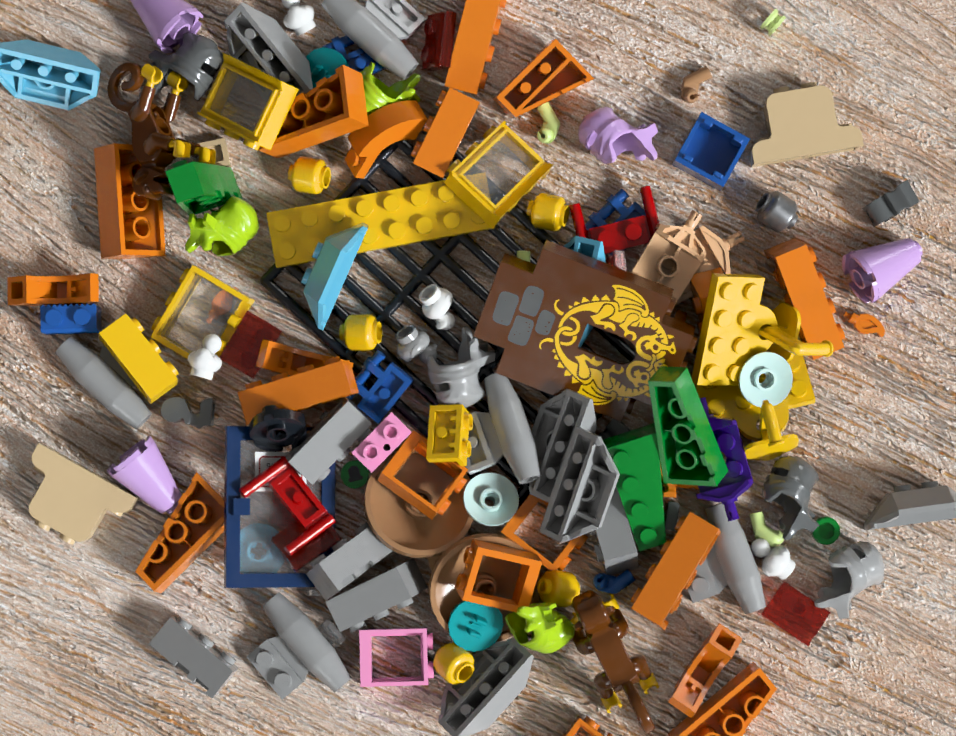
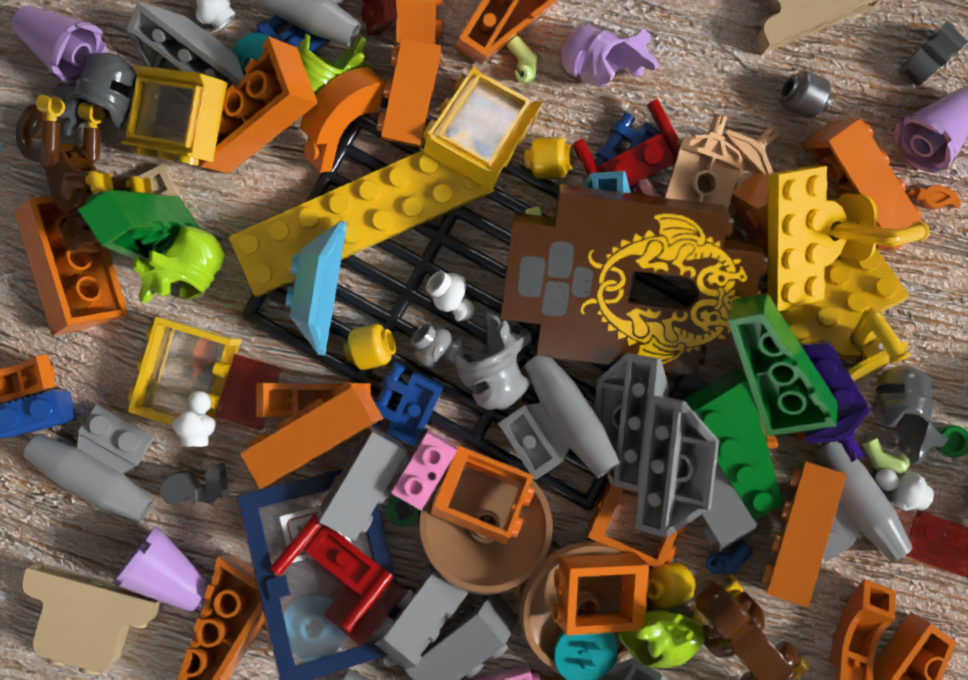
camera: 15 degrees left, 0 degrees up
(139, 357) = (119, 439): yellow brick -> none
(289, 427) = (297, 484): black plate -> none
(309, 175) = (268, 182): yellow head -> none
(449, 434) = (501, 441): yellow bracket -> none
(495, 488) = (569, 487): light aqua dish -> none
(671, 516) = (780, 468): dark grey tile -> none
(711, 151) = (716, 45): blue container -> none
(777, 380) = (861, 287): light aqua dish -> none

